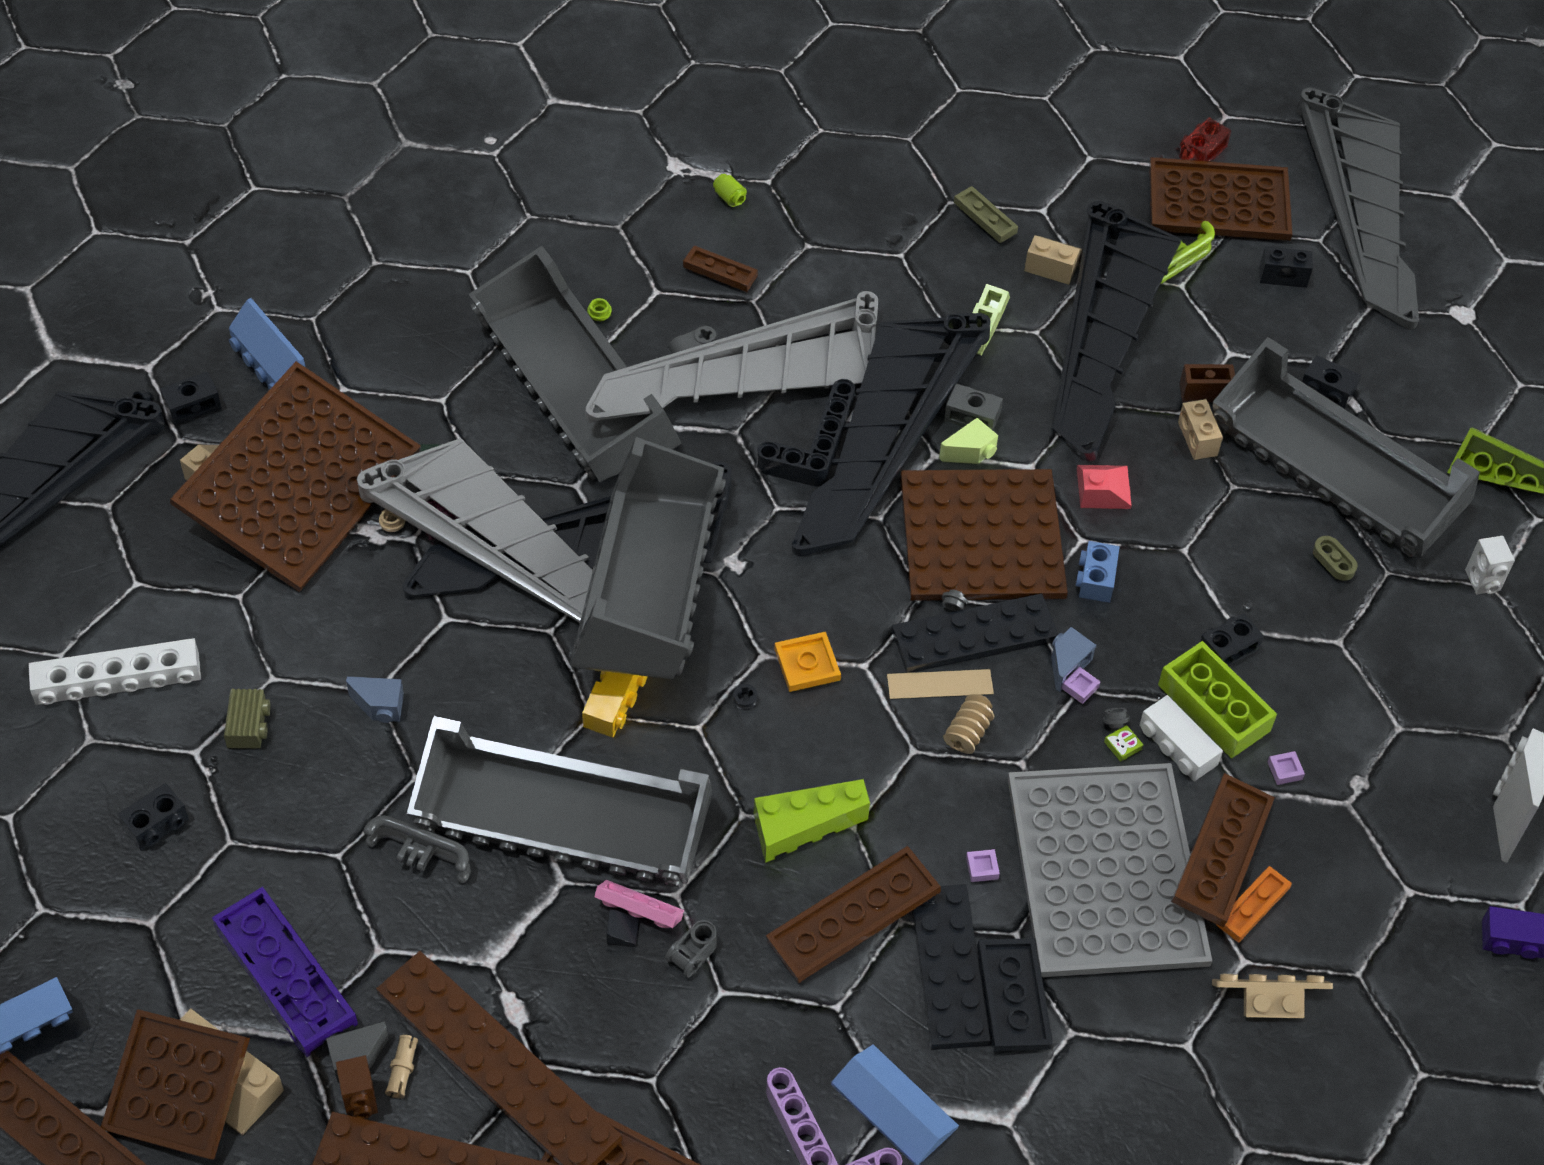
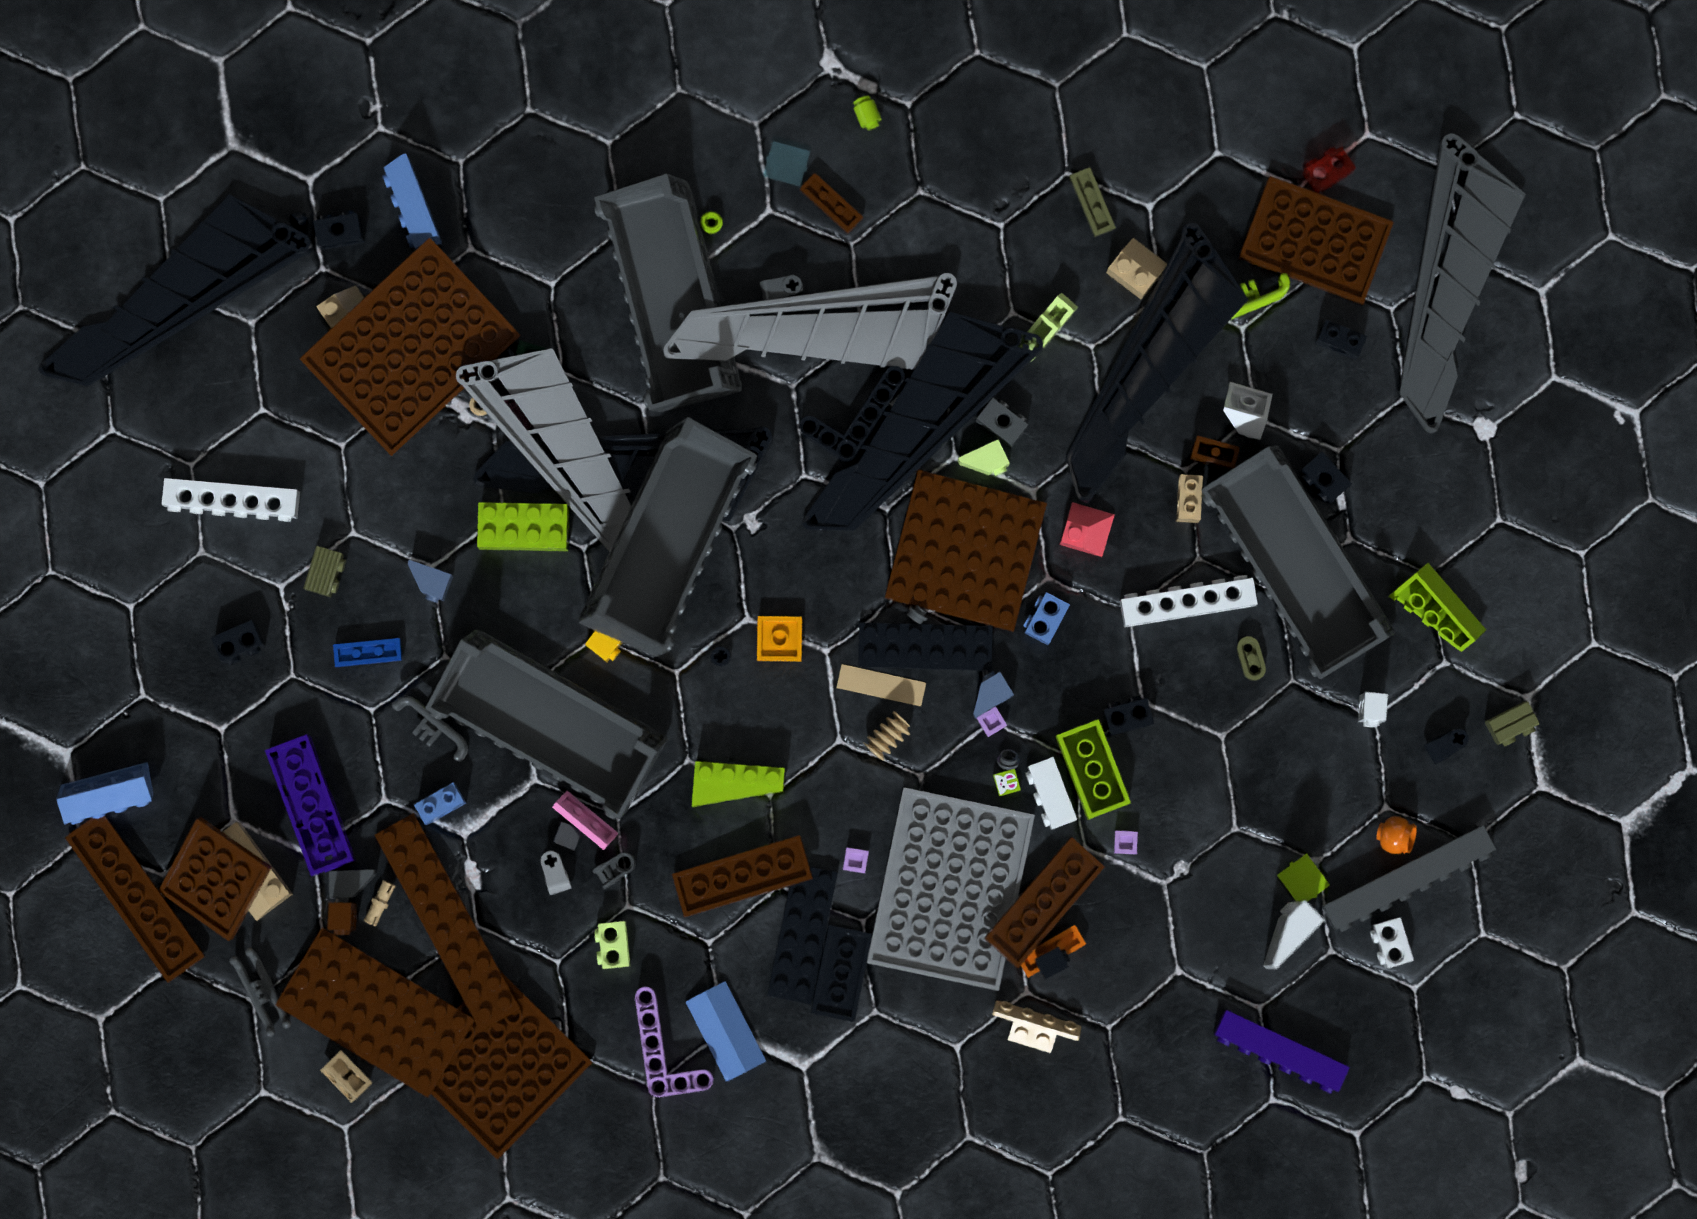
camera: 20 degrees right, 30 degrees up
(319, 791) = (367, 652): none -> blue plate
(451, 929) = (440, 803): none -> medium blue brick
(474, 619) = (523, 526): none -> lime brick
(620, 974) = (555, 877): none -> light grey piece
(661, 250) = (786, 163): none -> clear light blue piece
(724, 1034) = (619, 944): none -> yellowish green brick
(1225, 345) = (1247, 409): none -> white slope
(1243, 521) = (1243, 586): none -> white brick
(1263, 907) = (1052, 962): none -> black brick
(1493, 756) = (1303, 879): none -> lime piece

